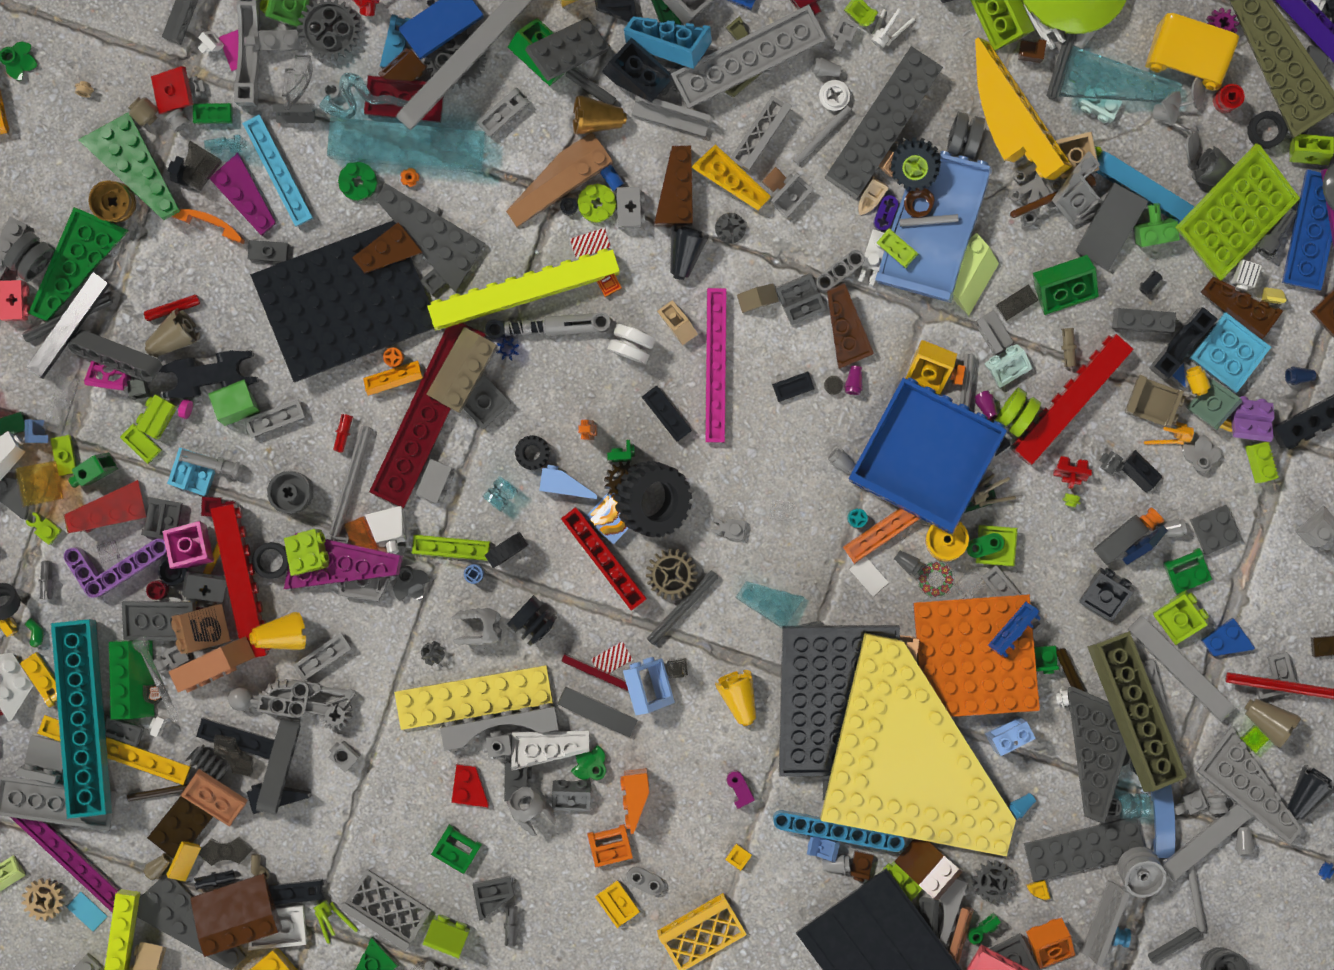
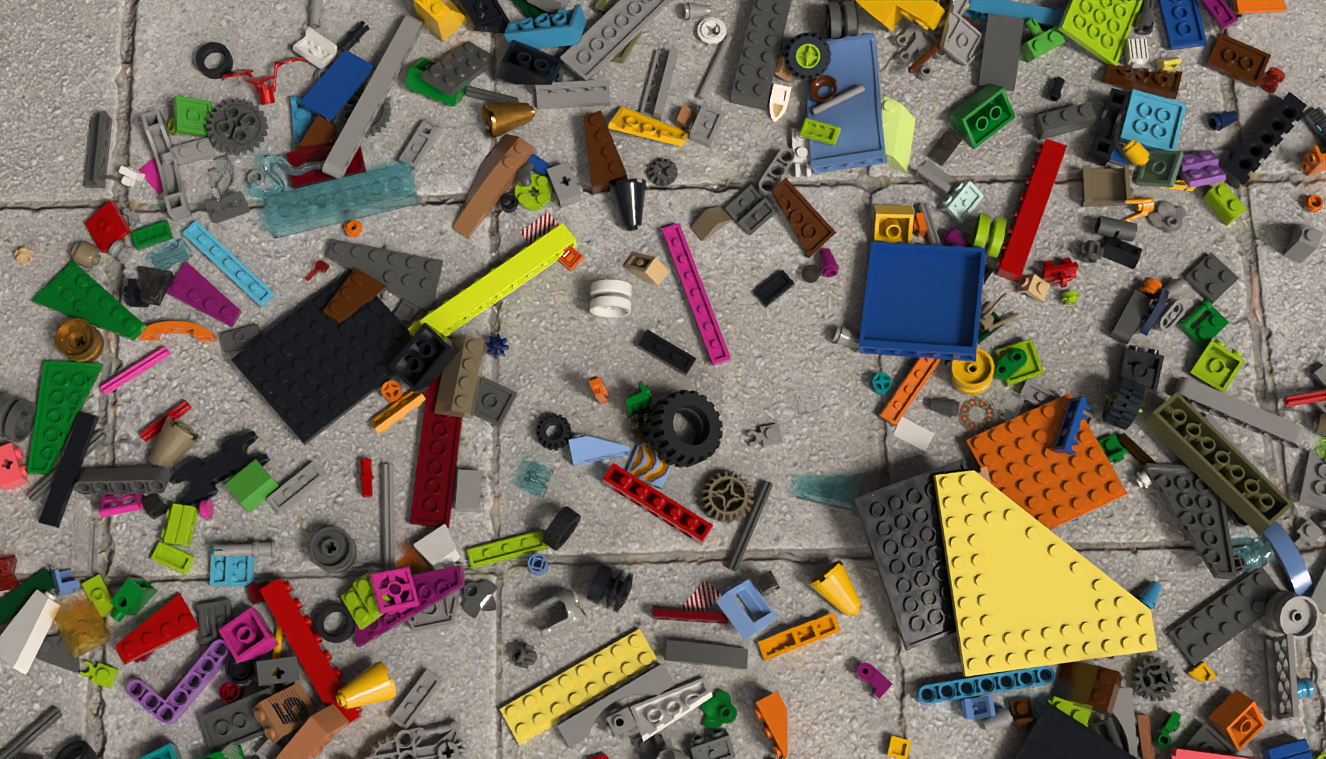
camera: 20 degrees left, 15 degrees down
(46, 579) = (116, 724): flat silver axle -> none
(157, 246) = (134, 370): none -> dark pink axle
(319, 541) = (382, 605): none -> dark pink piece
(348, 187) = (299, 240): green plate -> none
(366, 205) = (319, 266): none -> clear red hand
(432, 341) = (424, 358): none -> black slope
(550, 325) = (531, 310): piece -> none
(592, 184) = (524, 174): none -> dark grey arm
(688, 726) = (799, 636): none -> light orange slope
(889, 215) = (793, 111): dark purple beam -> none
(1003, 737) = (1110, 529): light blue window -> none
(1041, 476) = (1033, 286): none -> tan bracket
(1069, 347) = (1008, 167): dark tan pin -> none
(1074, 623) = (1123, 403): none -> black wheel
(1146, 448) = (1115, 228): none -> dark grey pin
(1161, 552) = (1170, 315): none -> light grey plate
(1227, 639) = (1268, 372): blue wing -> none

